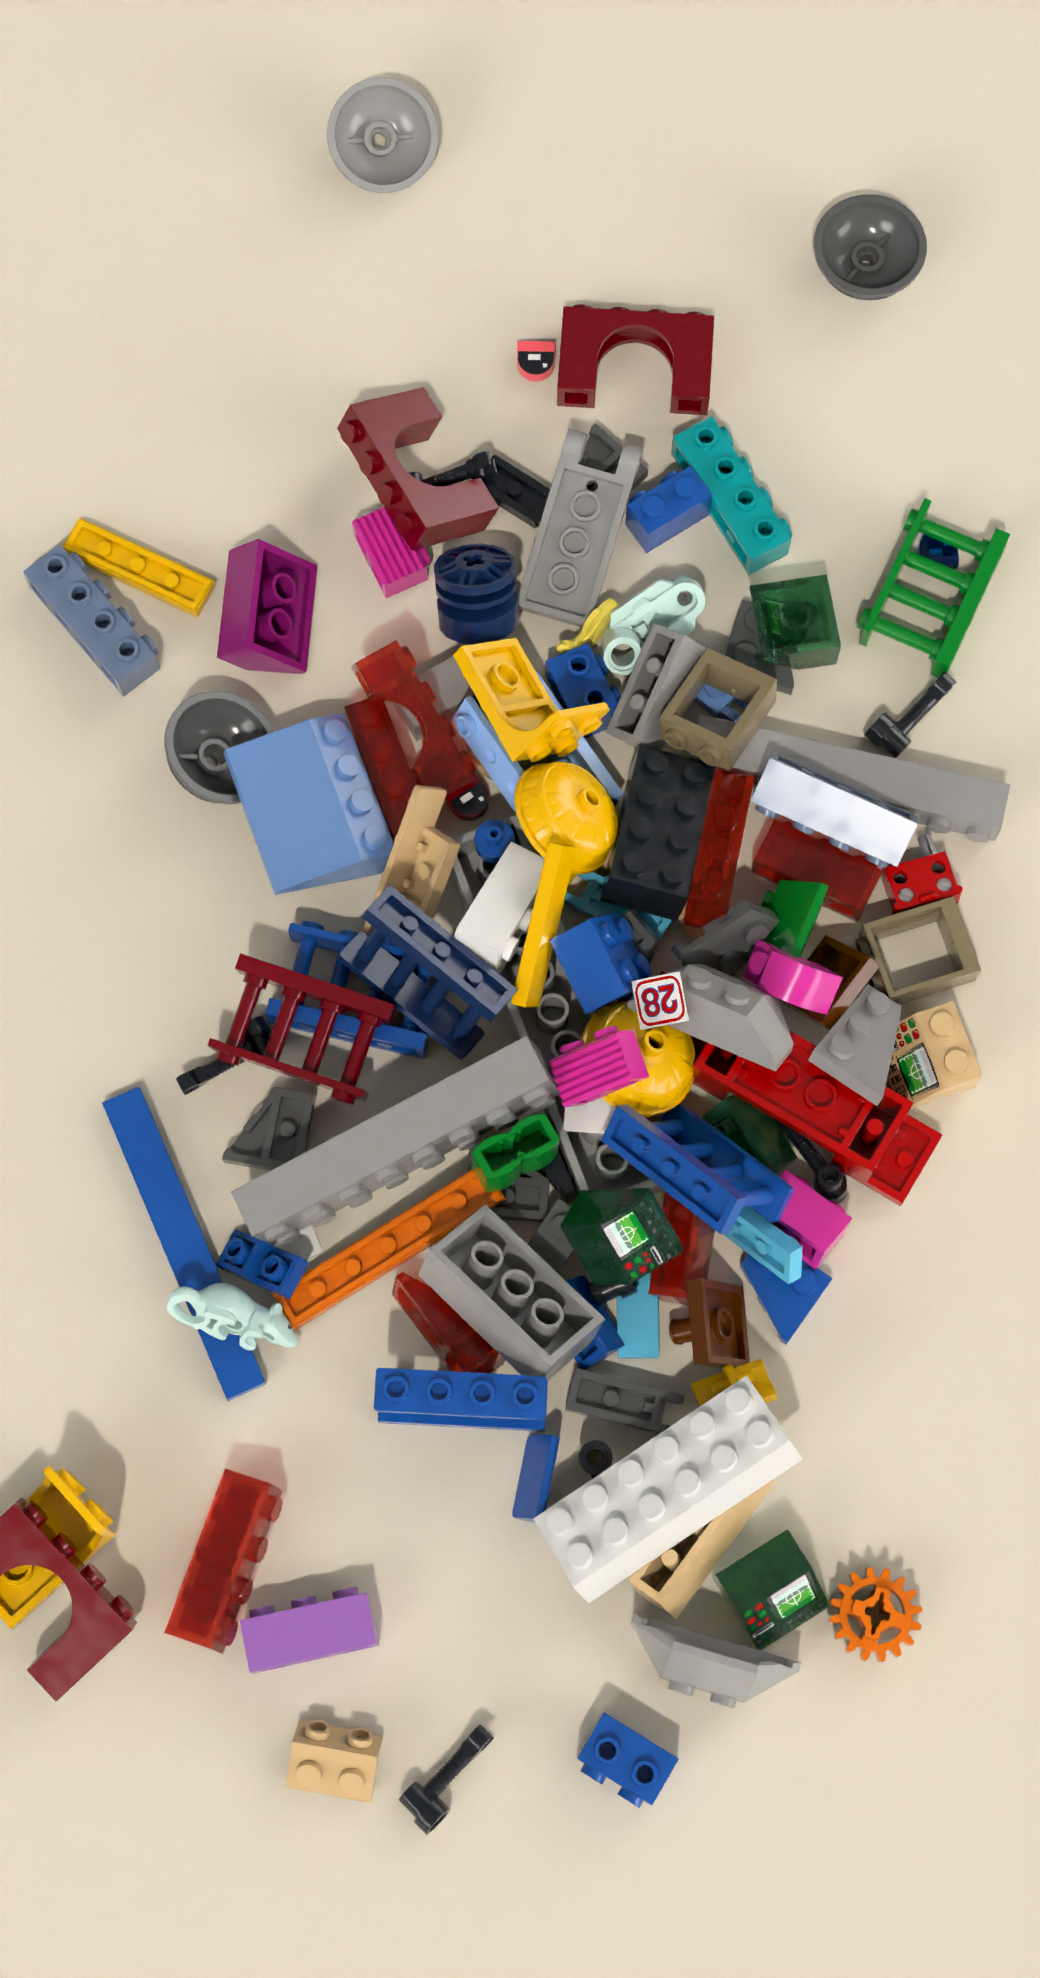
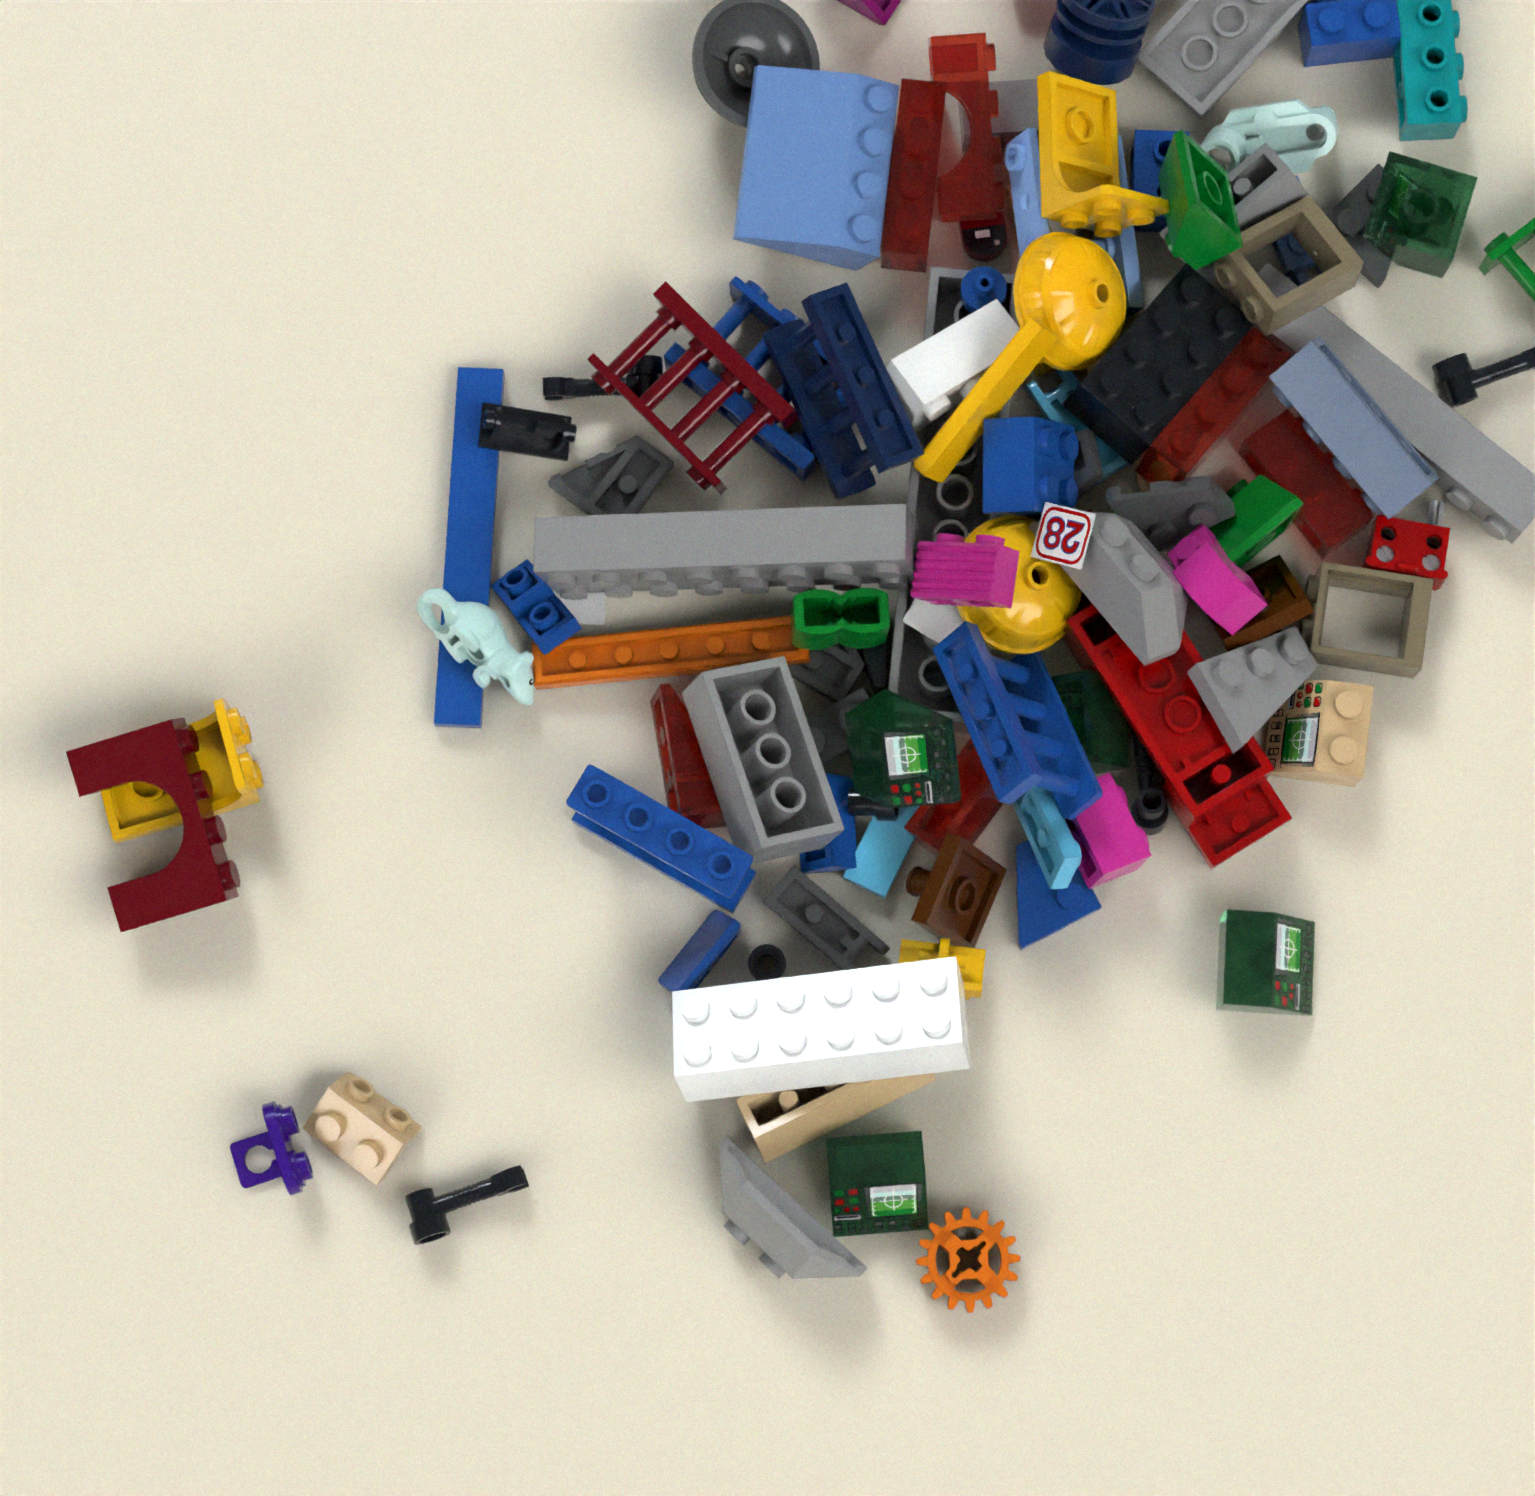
camera: 30 degrees right, 5 degrees up
(183, 1127) = (525, 431): none -> black hinge
(225, 1561) = (351, 880): clear red brick -> none
(293, 1822) = (289, 1164): none -> dark purple bracket
(308, 1630) = (399, 989): medium lavender brick -> none
(420, 853) = (900, 267): tan bracket -> none
(592, 628) = (1203, 118): light yellow piece -> none
(627, 1760) = (645, 1273): blue brick -> none
(633, 696) = (1201, 204): none -> green slope
(980, 1259) = (1265, 963): none -> clear green slope

